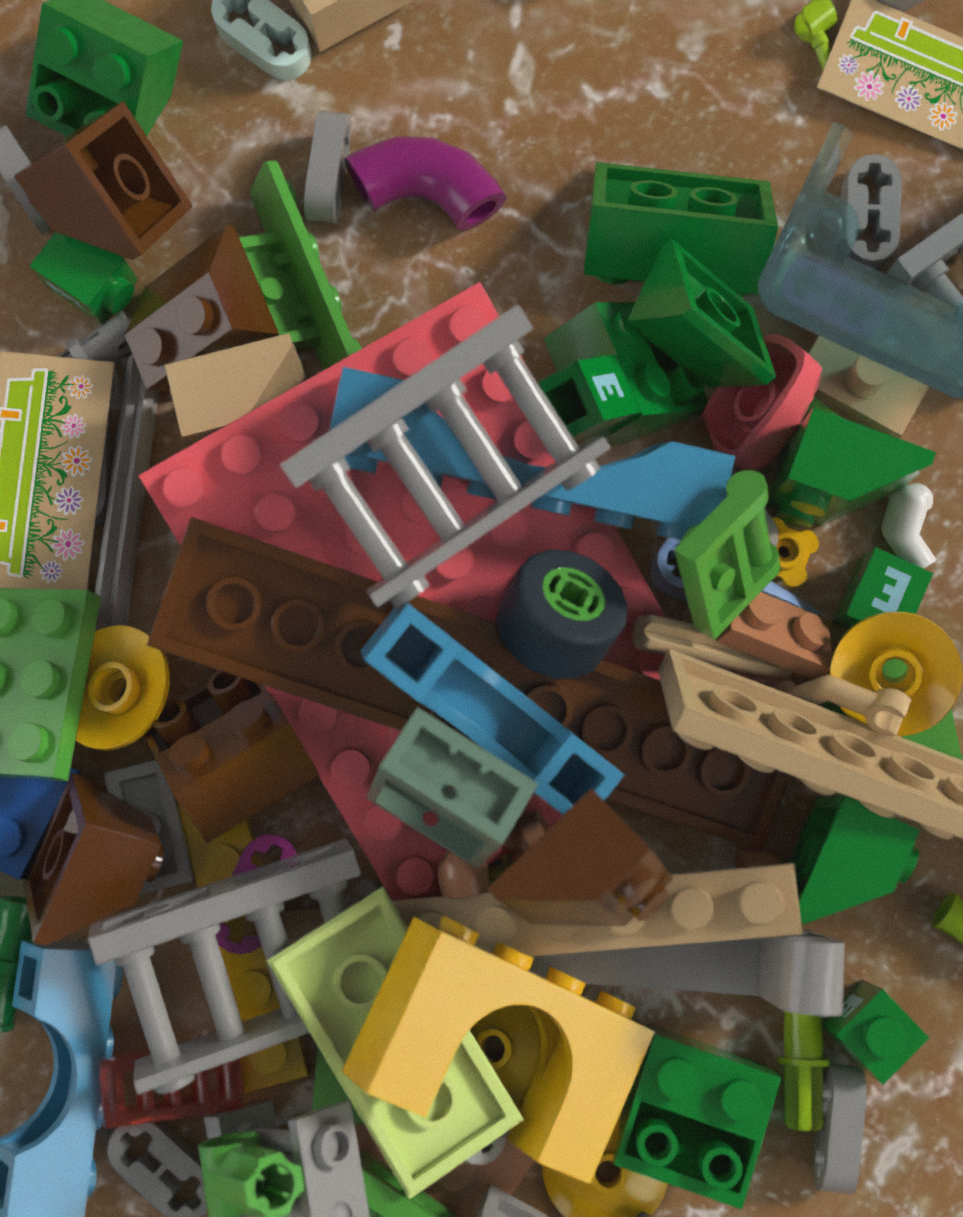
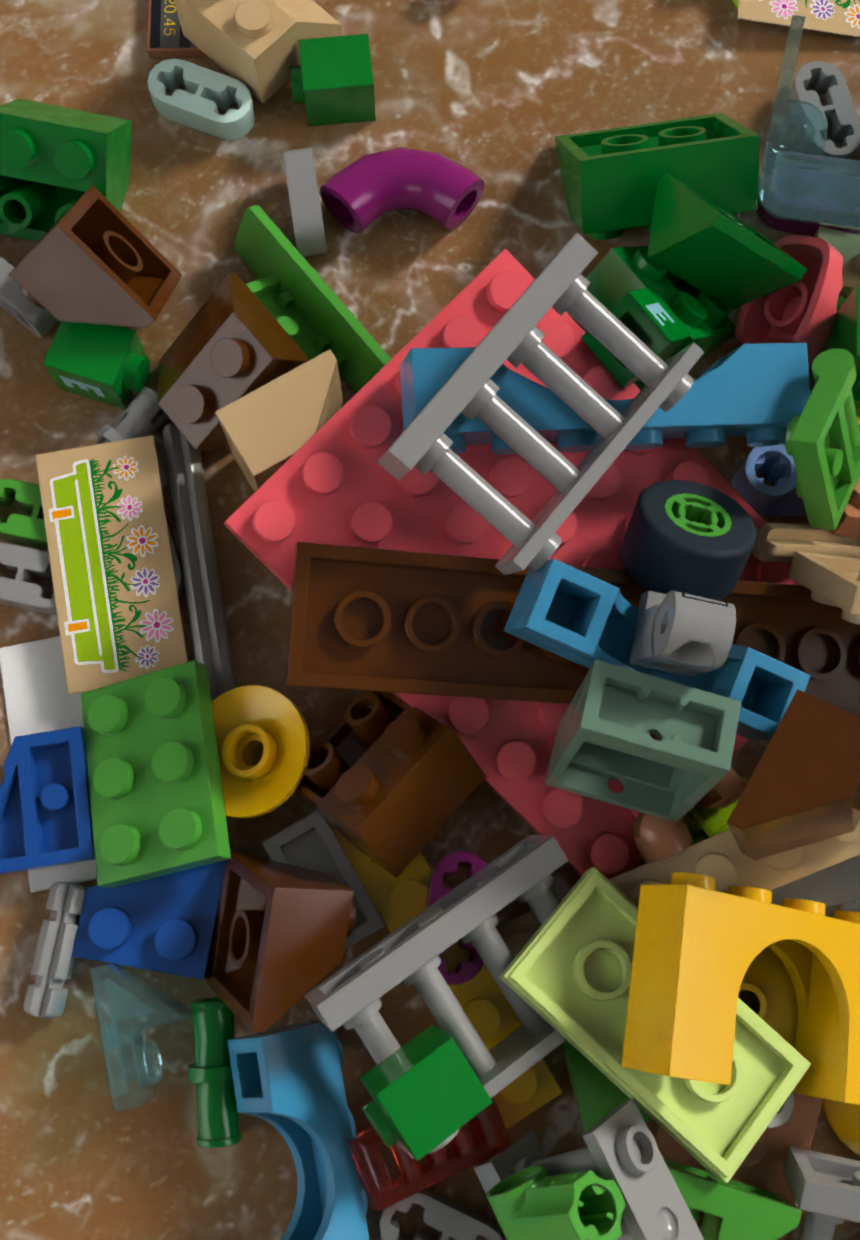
camera: 20 degrees left, 5 degrees down
(159, 1041) = (423, 1093): none -> green brick
(393, 49) = (335, 80): none -> green brick
(508, 702) = (682, 633): none -> light grey leg

